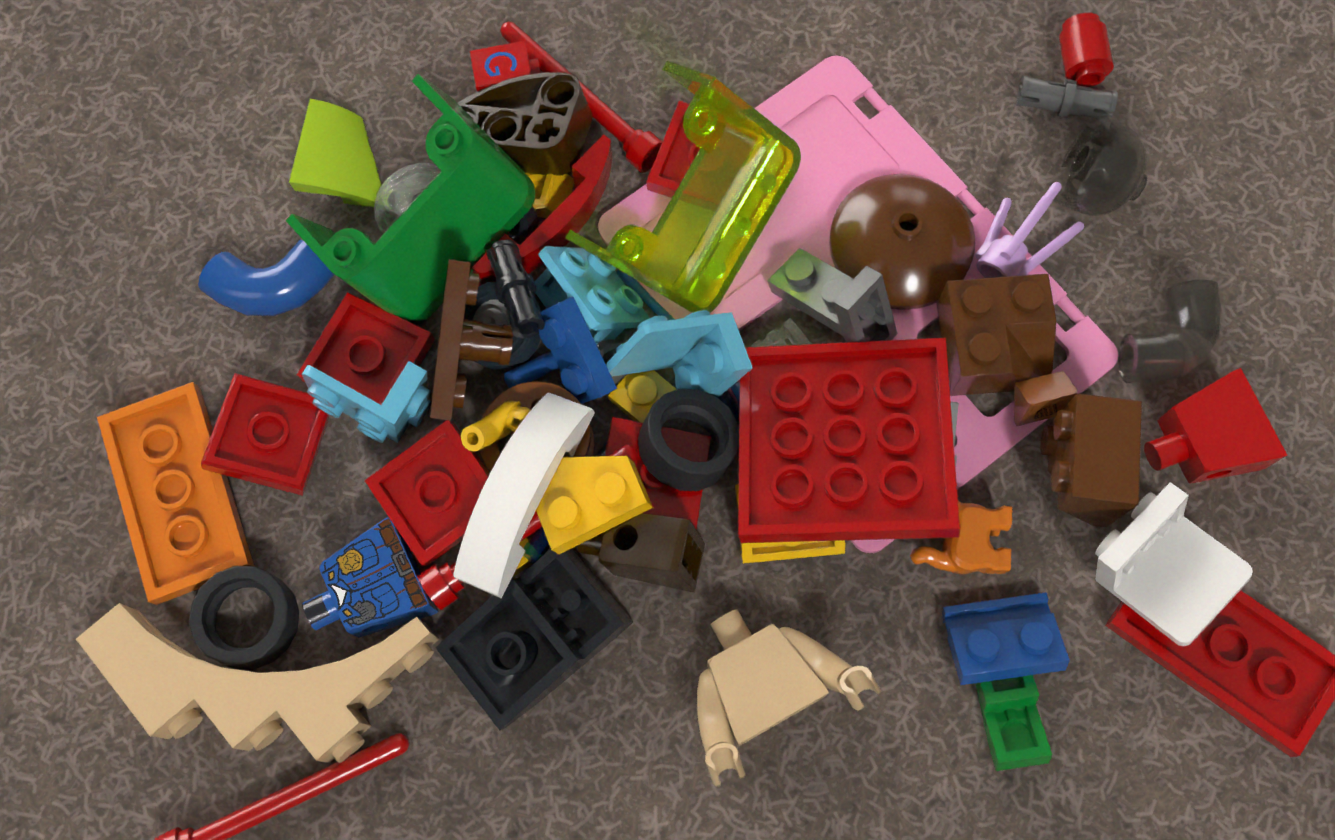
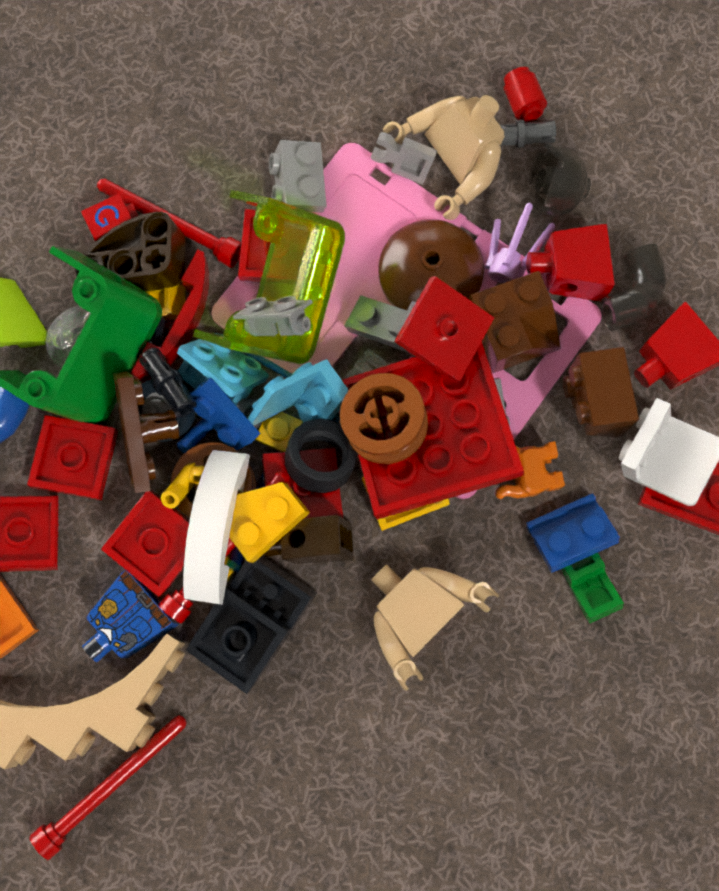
camera: 15 degrees left, 5 degrees up
(209, 600) = (15, 660): black tyre -> none
(403, 406) = (113, 485): medium azure bracket -> none
(694, 238) = (263, 315): none -> light grey hinge
(763, 72) = (299, 175): none -> light grey bracket
(816, 416) = (362, 417): none -> dark orange wheel
(900, 313) = (444, 329): none -> red plate
(912, 92) = (410, 159): none -> light grey plate
(991, 83) = (466, 141): none -> tan torso
(1041, 397) = (556, 358): dark orange slope -> none
(1101, 280) = (576, 263): none -> red torso

